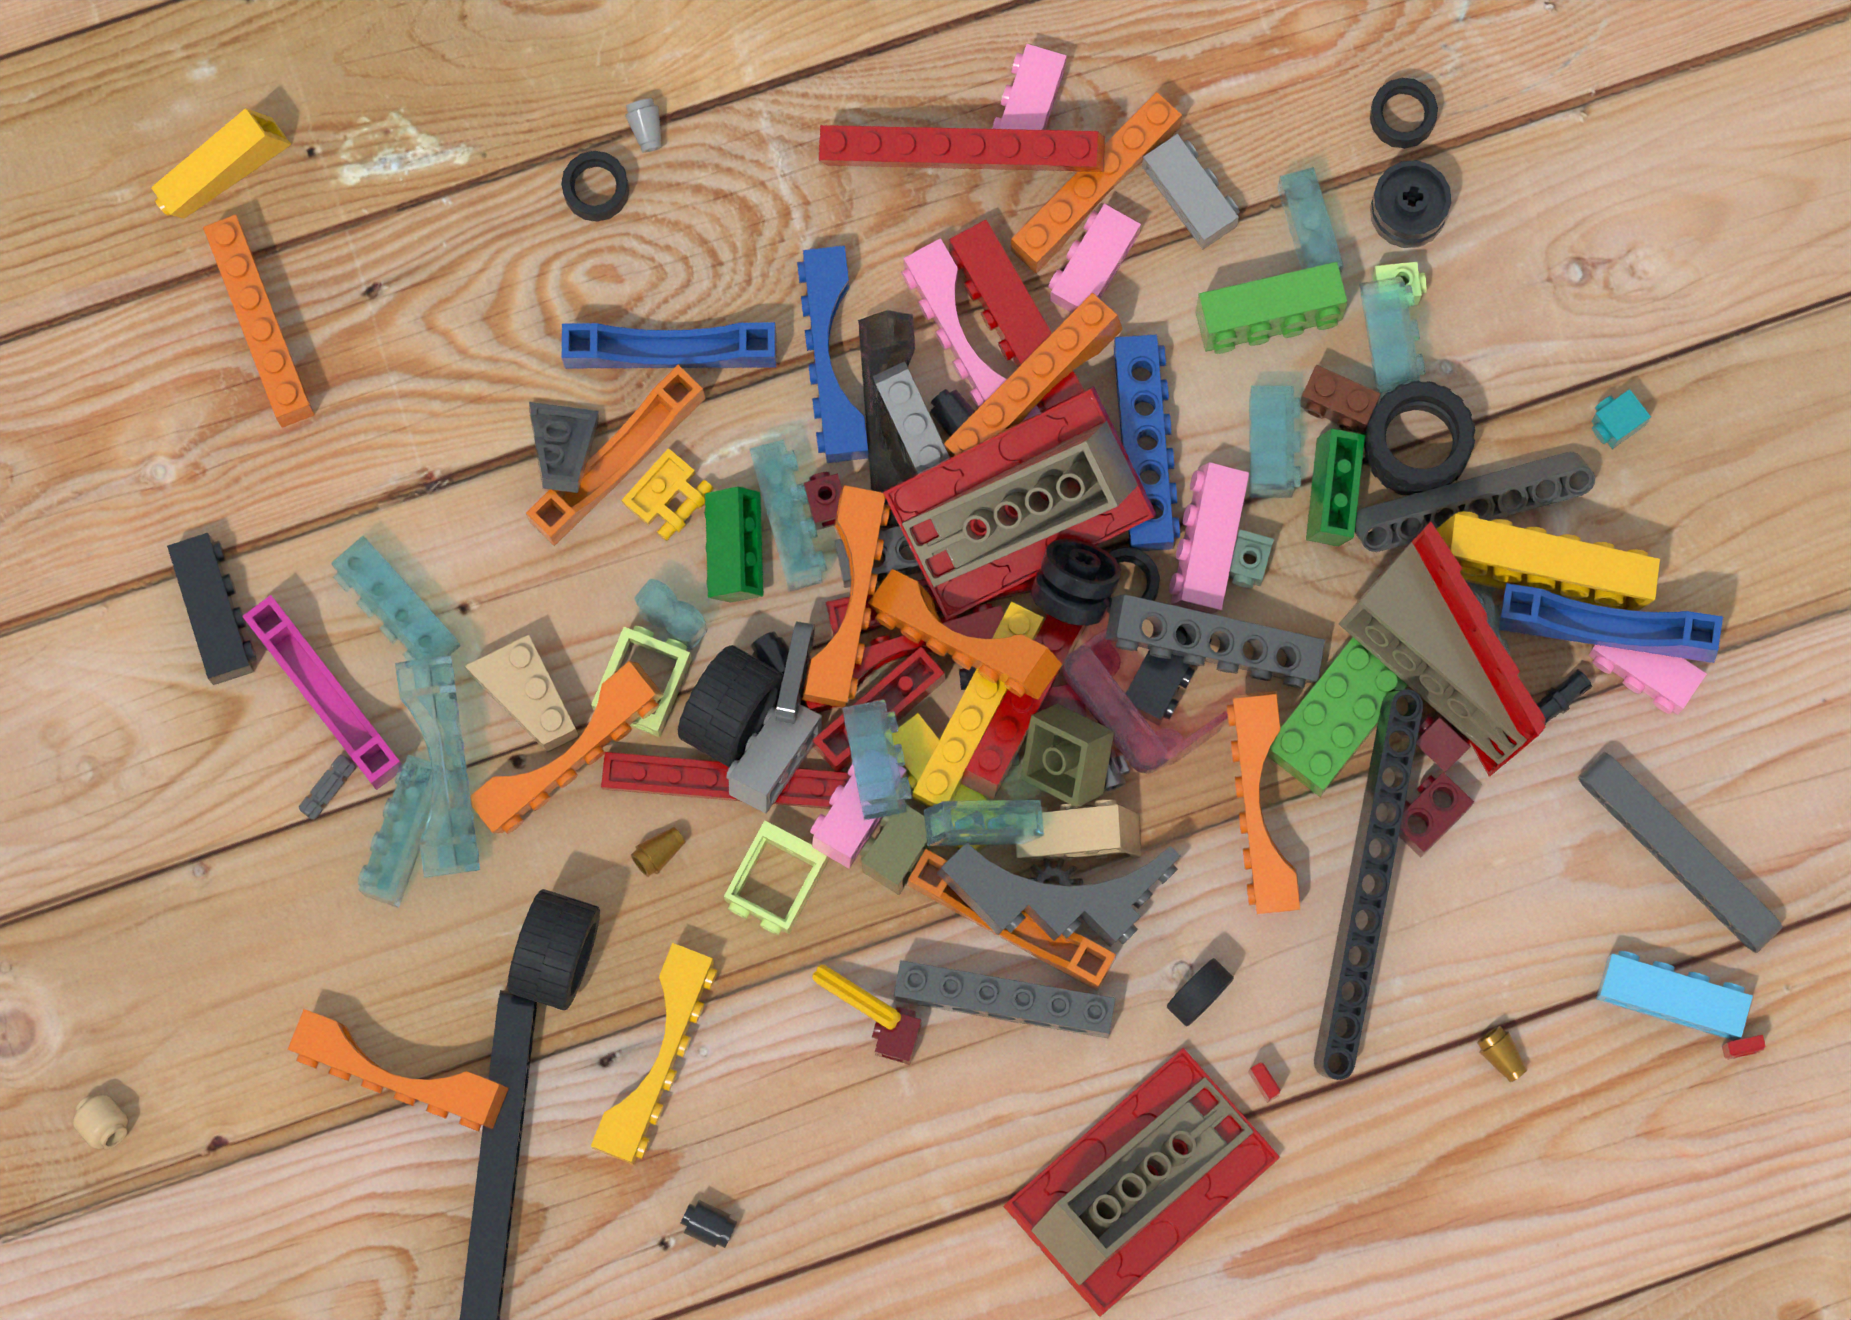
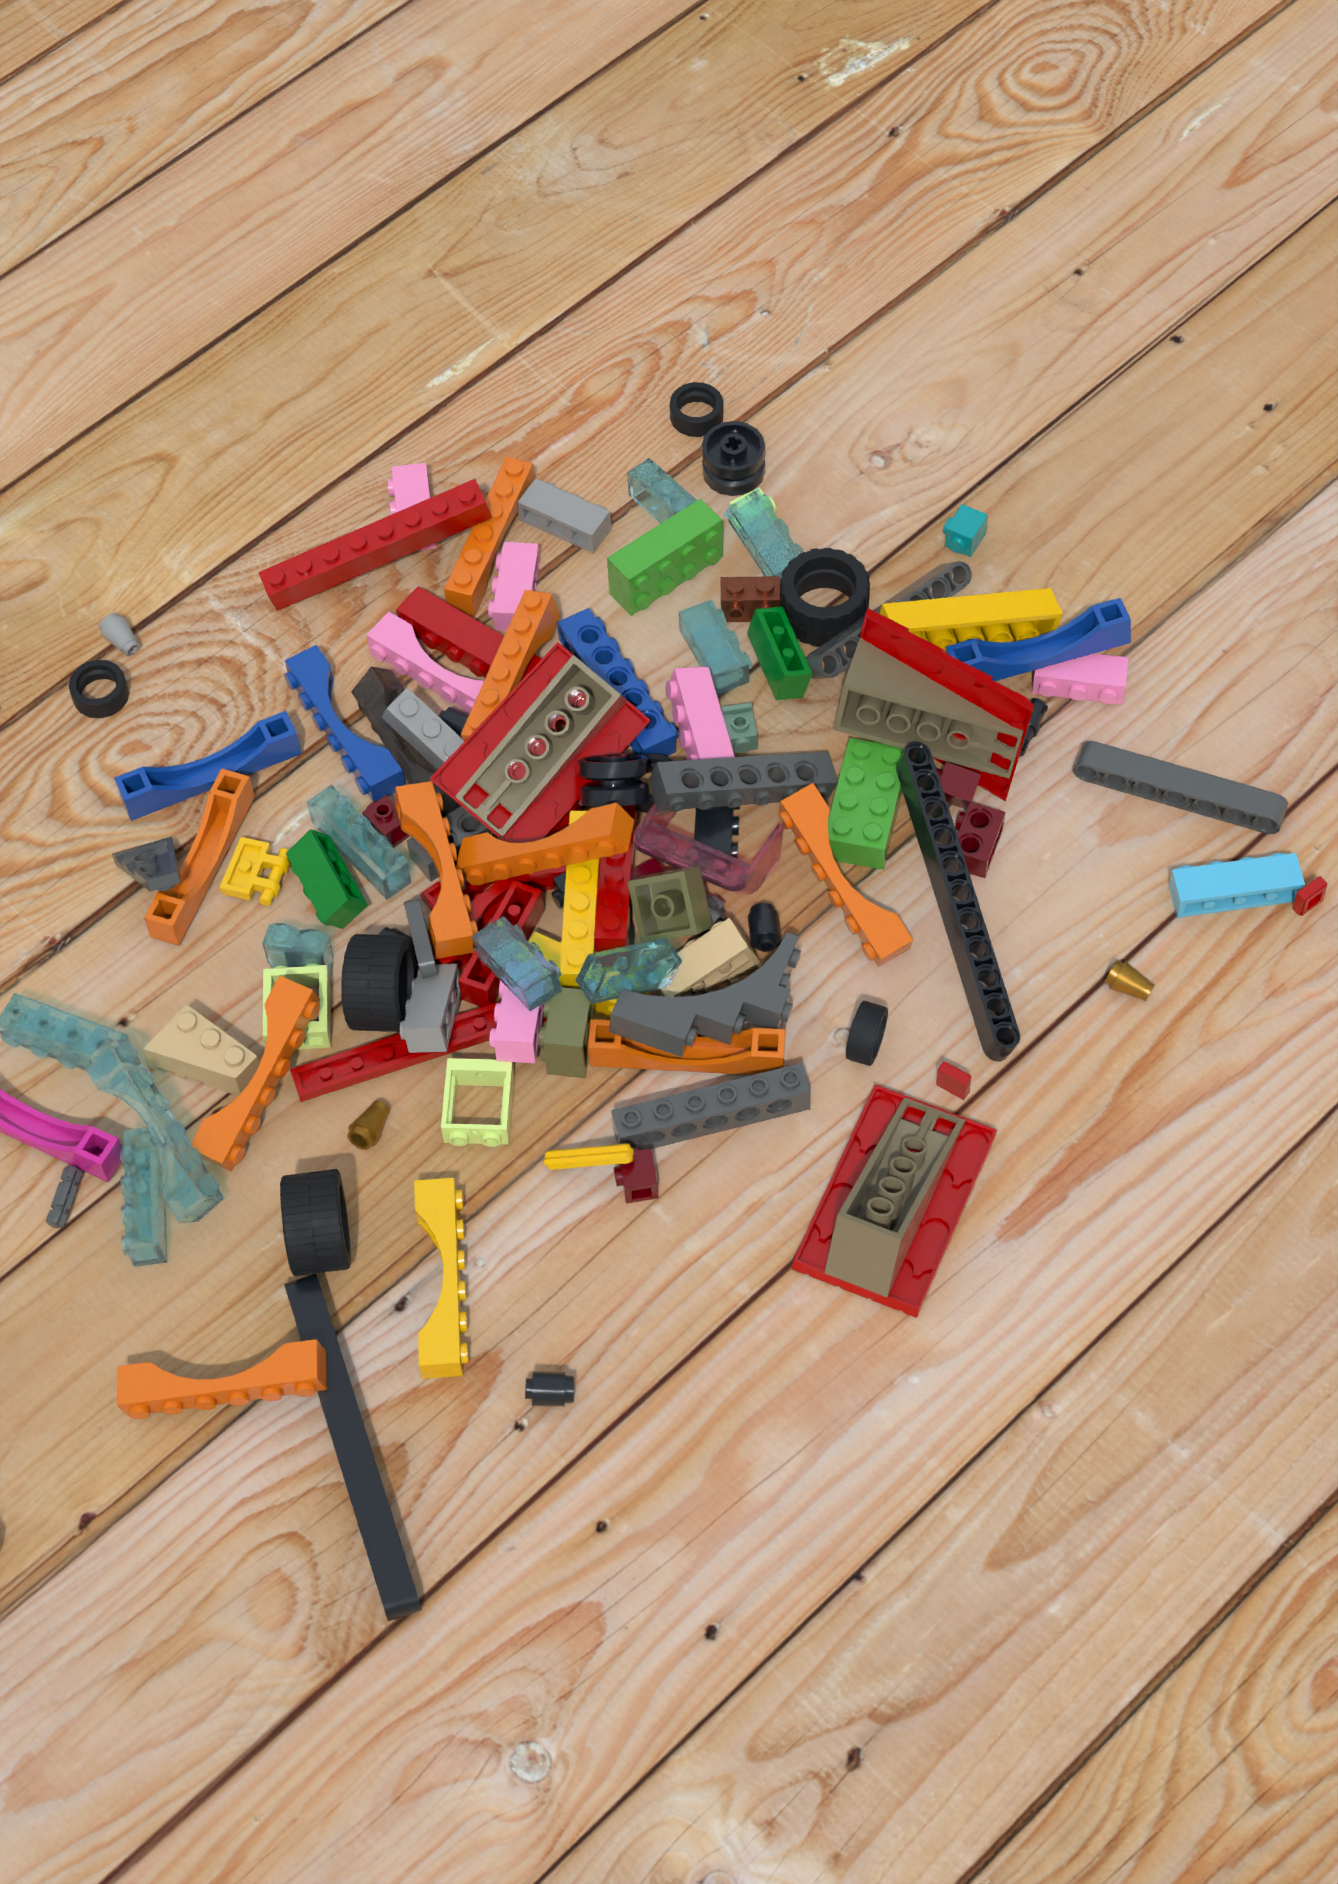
camera: 25 degrees left, 20 degrees down
(1159, 813) = (764, 927): none -> black brick

